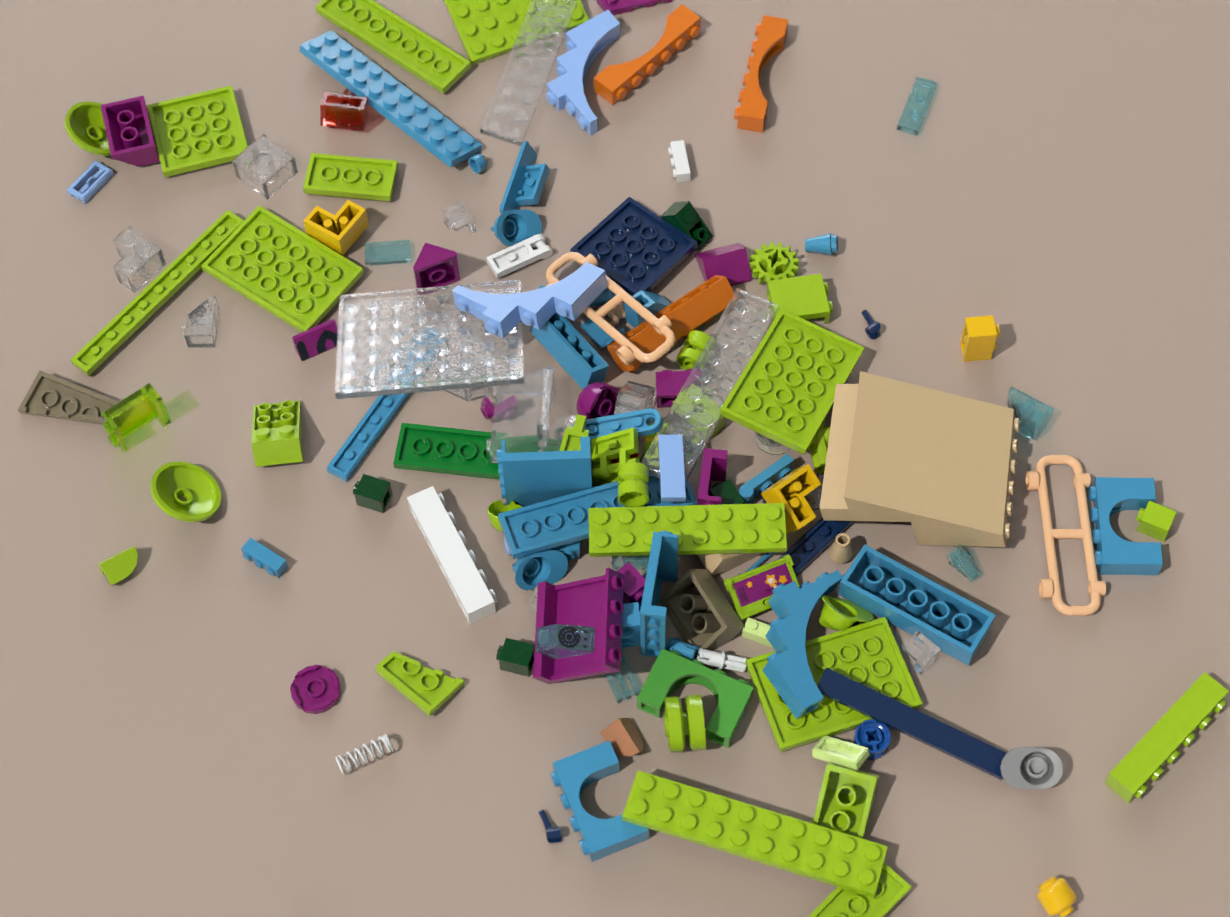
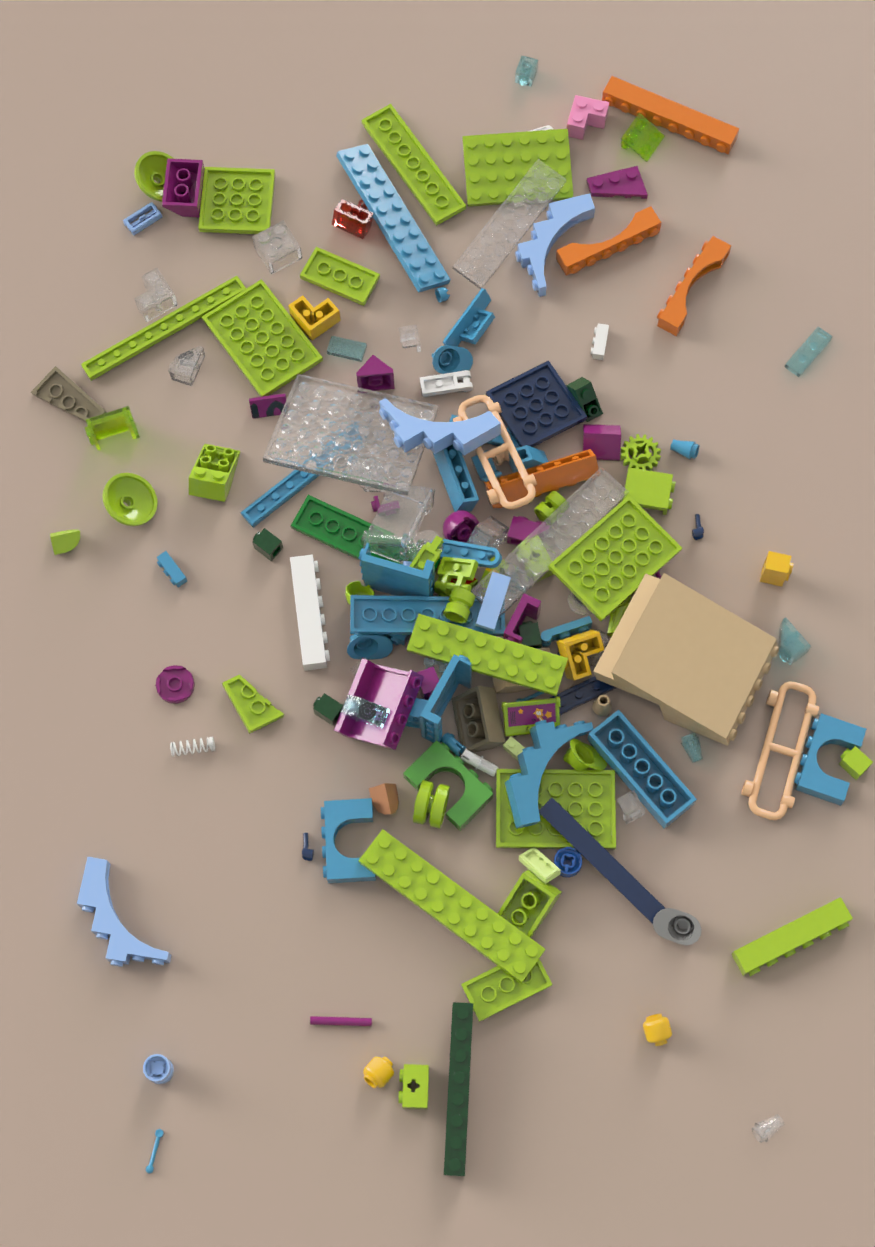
camera: 20 degrees right, 10 degrees up
(626, 693) = (400, 765): clear light blue tile -> none

